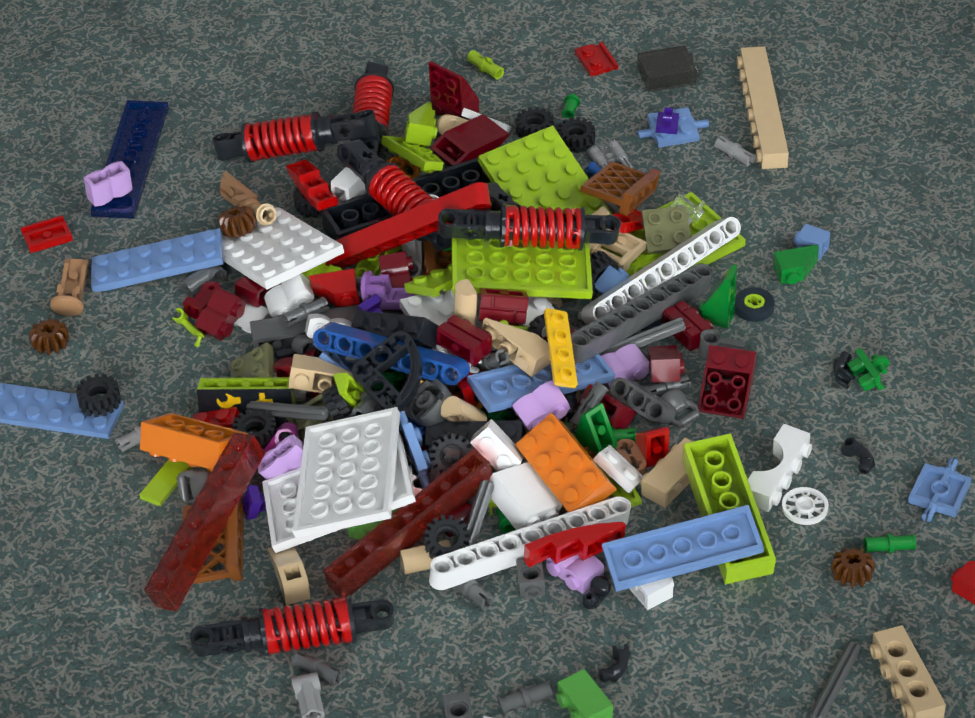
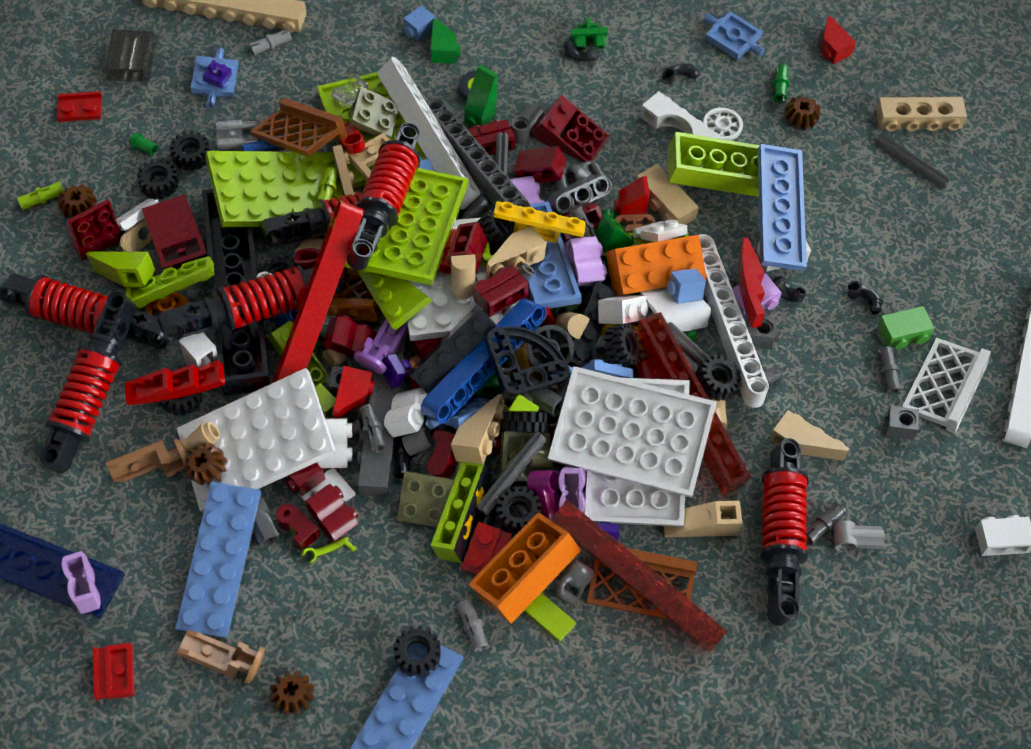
camera: 80 degrees left, 15 degrees up
(412, 627) = (810, 438): none -> tan slope
(487, 85) = (76, 200): none -> reddish brown gear
(544, 489) = (686, 285): none -> medium blue brick

